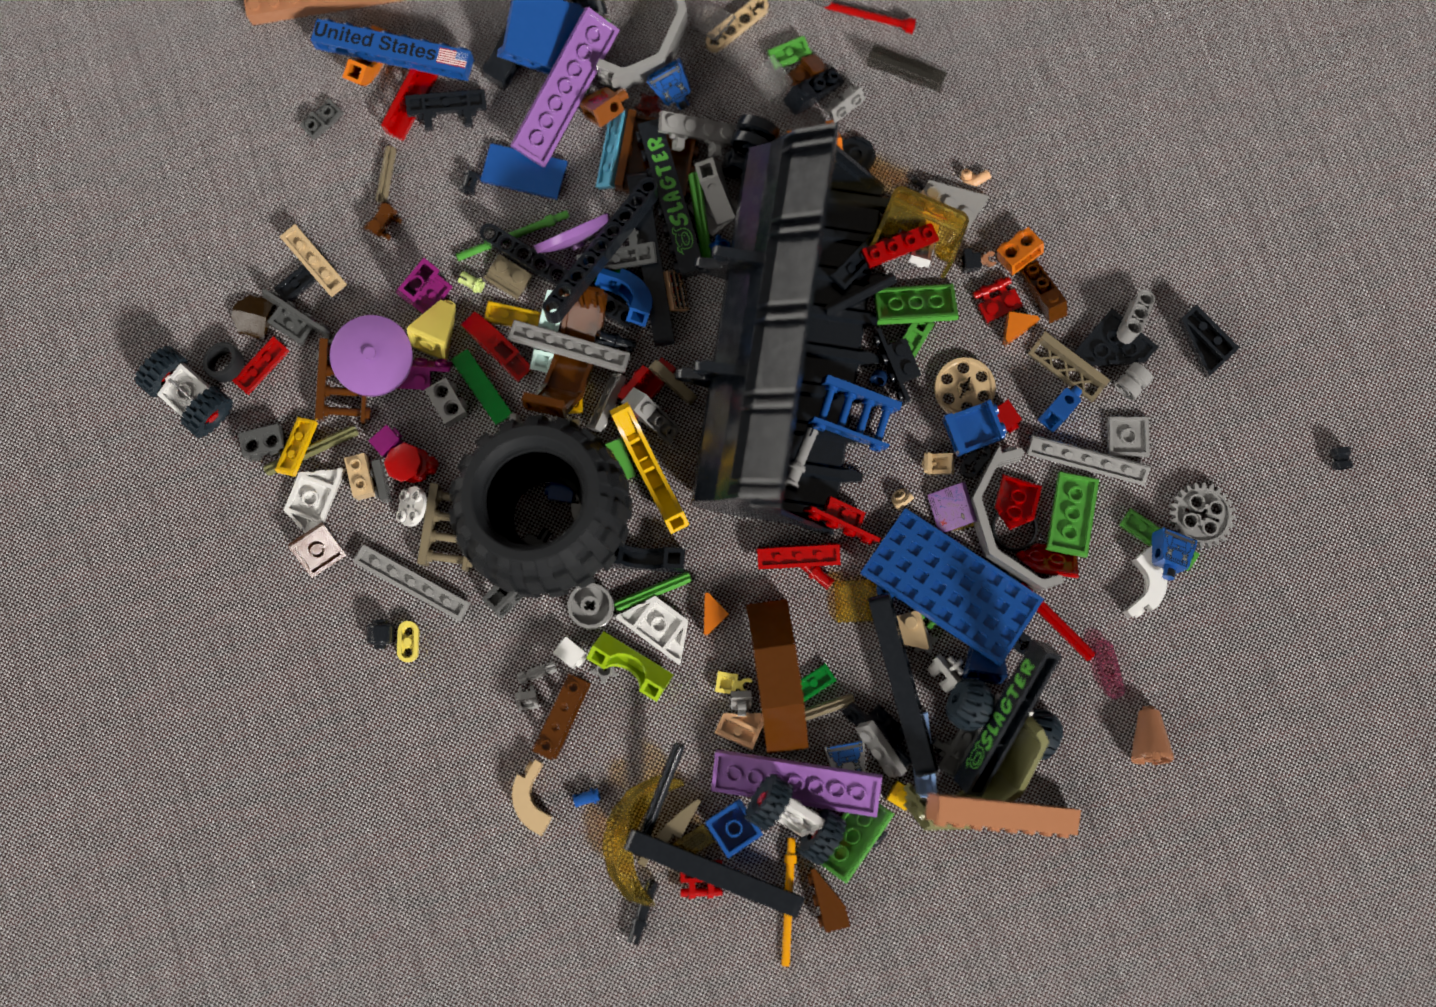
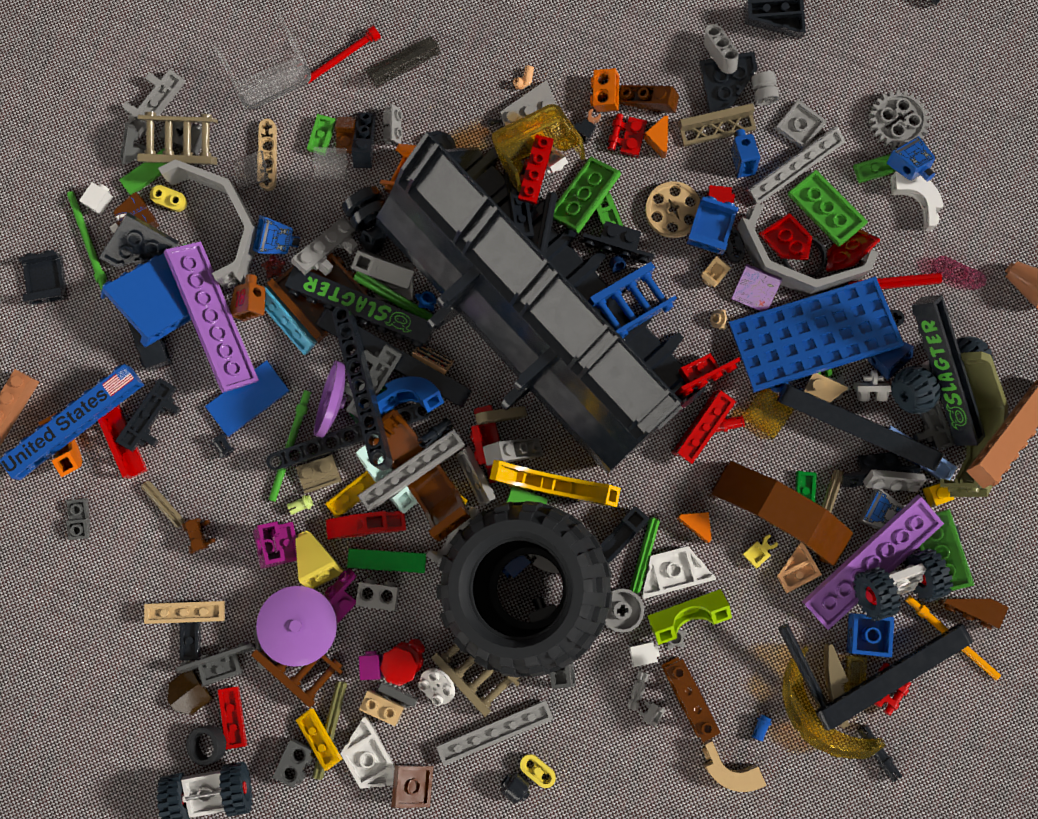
camera: 50 degrees left, 0 degrees up
(741, 701) = (779, 555): light grey tile -> none

